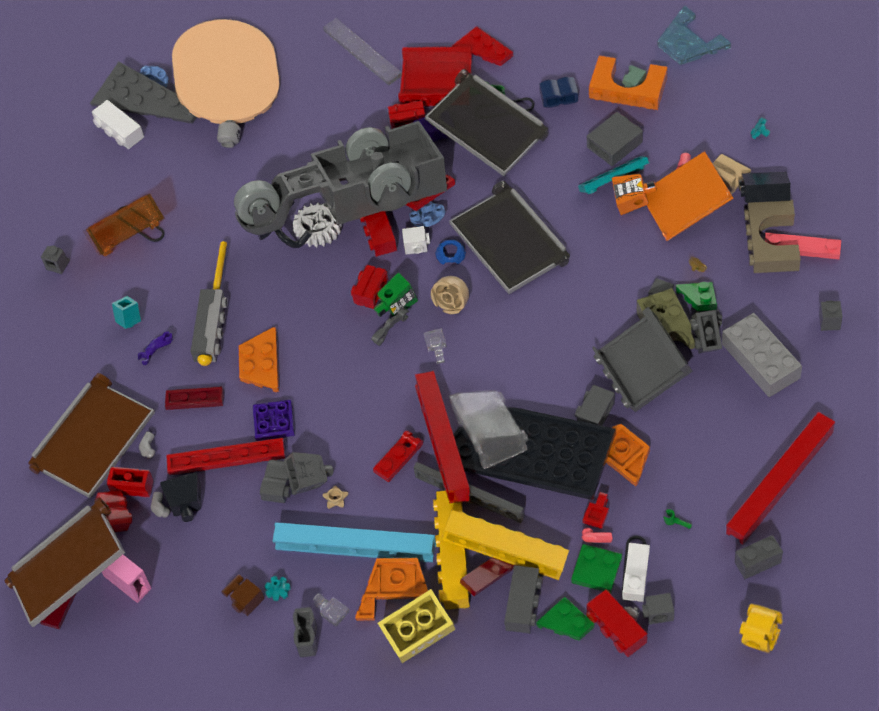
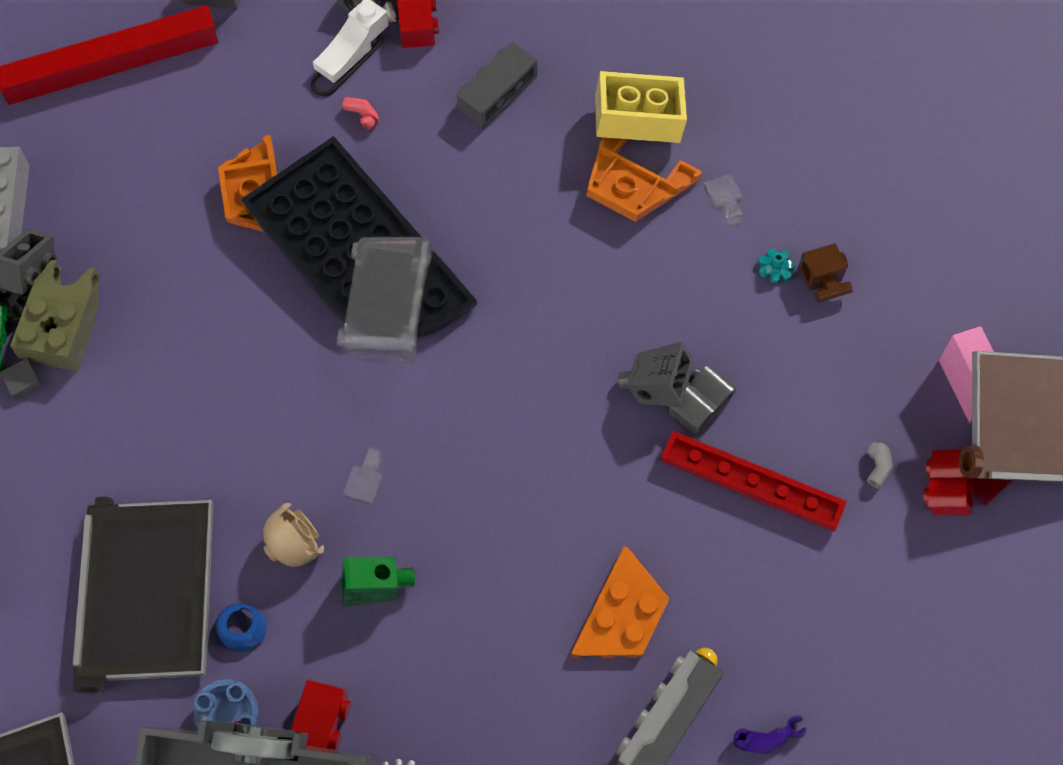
camera: 155 degrees left, 10 degrees up
(90, 437) = (932, 633): reddish brown door -> none
(130, 481) = (908, 510): red brick -> none
(145, 447) = (860, 568): light grey arm -> none
(183, 495) = (841, 453): black torso -> none
(194, 398) = (751, 610): dark red tile -> none
(273, 420) = (656, 503): dark purple tile -> none
(305, 632) = (774, 177): dark grey brick -> none
(335, 492) = (632, 336): tan plate -> none
(353, 542) = (651, 261): medium azure tile -> none
(369, 284) = (394, 632): red brick -> none
(381, 334) = (430, 541): dark grey piece -> none
(398, 456) = (523, 349): red plate -> none
(415, 240) = (275, 672): white brick -> none
(442, 438) = (454, 320): red tile -> none
(451, 558) = (535, 187): yellow brick -> none
(476, 495) = (471, 244): dark grey tile -> none
(485, 575) = (516, 126): dark red tile -> none
(505, 544) = (476, 141): yellow brick -> none
(566, 620) = (464, 44): green wing -> none
(596, 406) = (238, 258): dark grey brick -> none
(596, 568) = (388, 80): green plate -> none
(597, 513) = (343, 129): red plate -> none
(642, 362) = (133, 274): dark grey panel -> none
(674, 520) = (259, 81): green hand -> none

